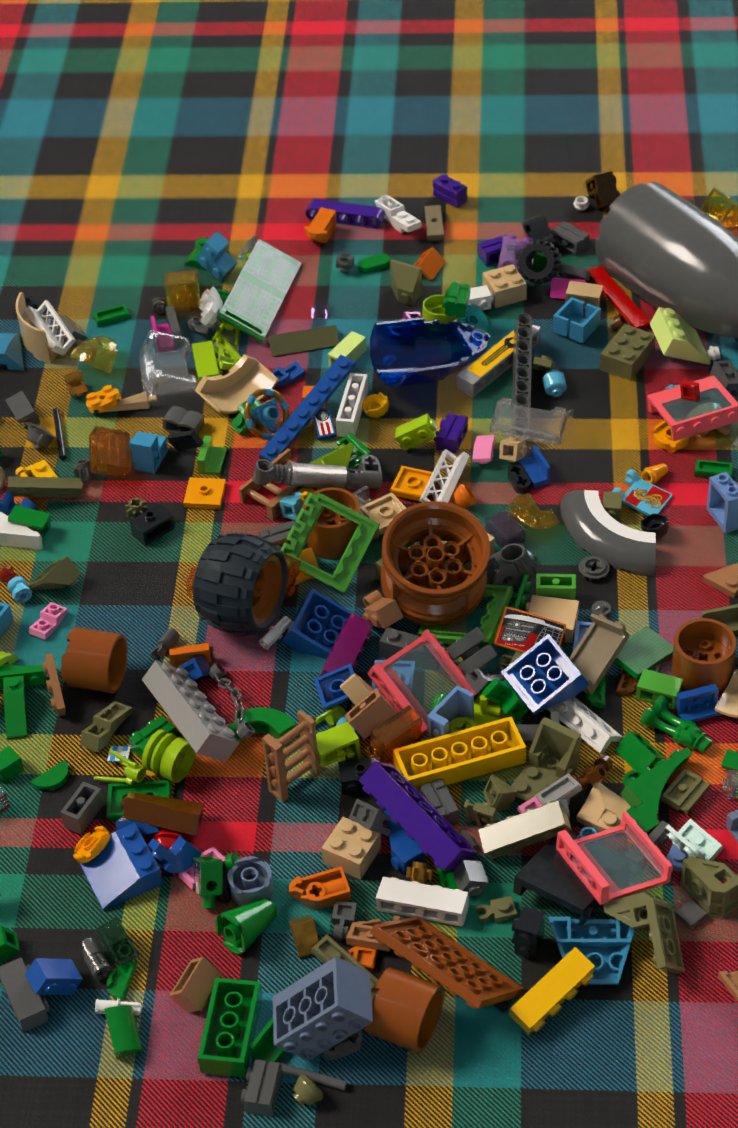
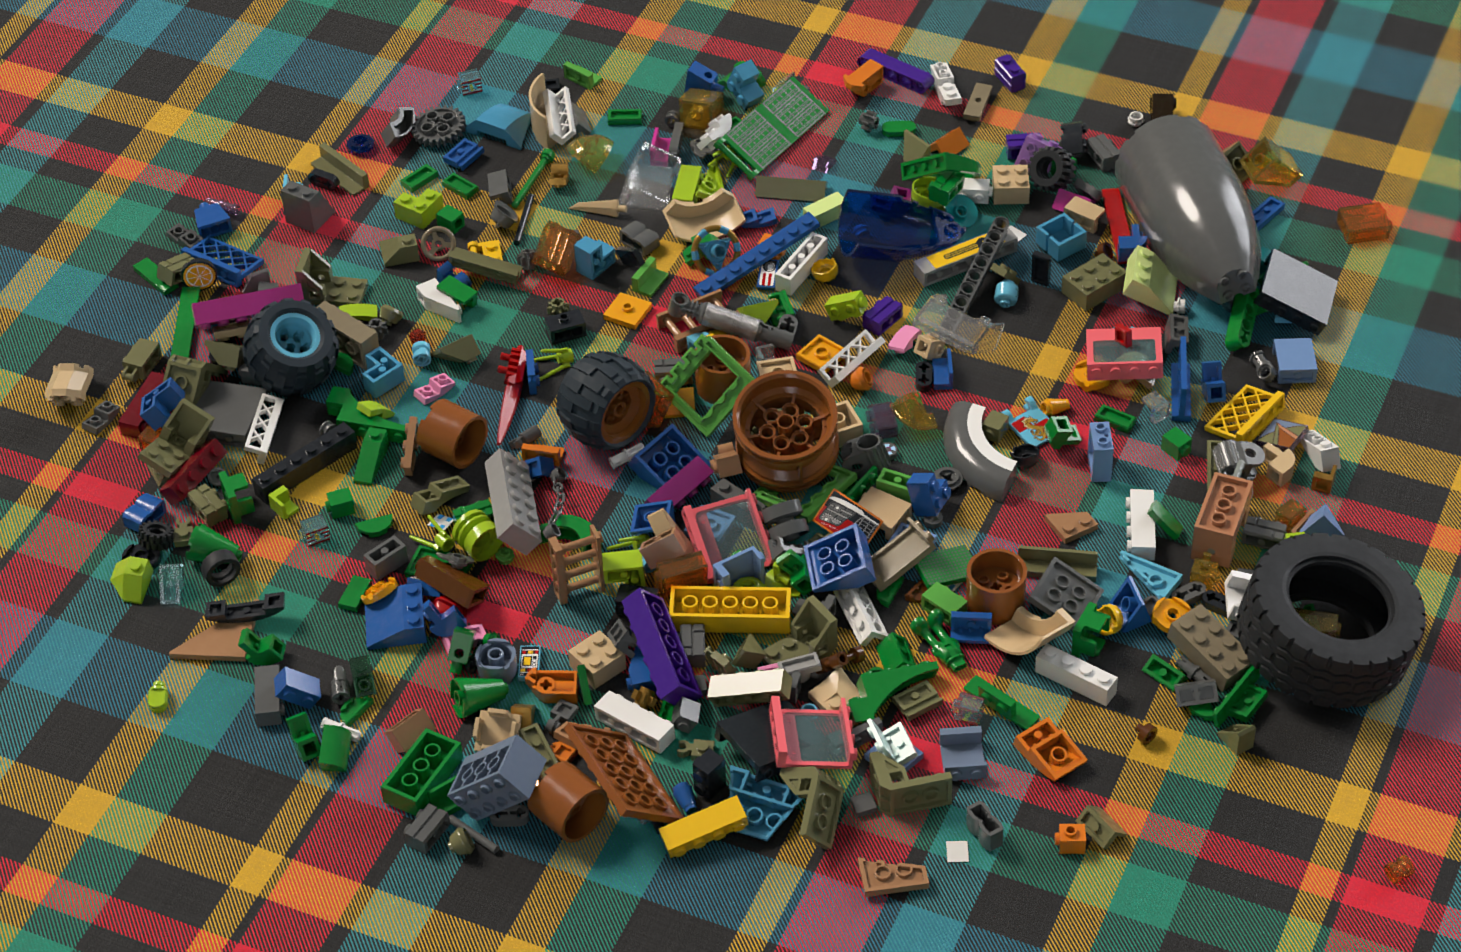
camera: 20 degrees right, 0 degrees up
(50, 288) = (580, 75): none -> bright green panel
(54, 371) = (547, 157): none -> green piece
(62, 859) = (351, 597): none -> green tile
(83, 1031) = (303, 737): none -> green brick
(103, 399) = (576, 197): light orange plate -> none
(126, 589) = (514, 381): none -> red piece
(141, 577) = (532, 370): none -> blue plate
(161, 788) = (457, 560): none -> dark grey plate
(164, 554) = (562, 355): none -> lime plant
(172, 261) = (702, 78): none -> blue torso
(202, 772) = (505, 555): none -> bright green plate
(281, 871) = (529, 658): none -> tile
(288, 957) = (494, 727): none -> tan panel
(353, 878) = (584, 684): none -> green tile
(439, 283) = (939, 163): none -> green window
(512, 964) = (685, 797): none -> blue cone
(575, 351) = (1041, 268): none -> black tile
(590, 587) = (927, 493): none -> blue brick
(643, 310) = (1127, 244): none -> blue brick
(677, 494) = (1061, 432): none -> green brick

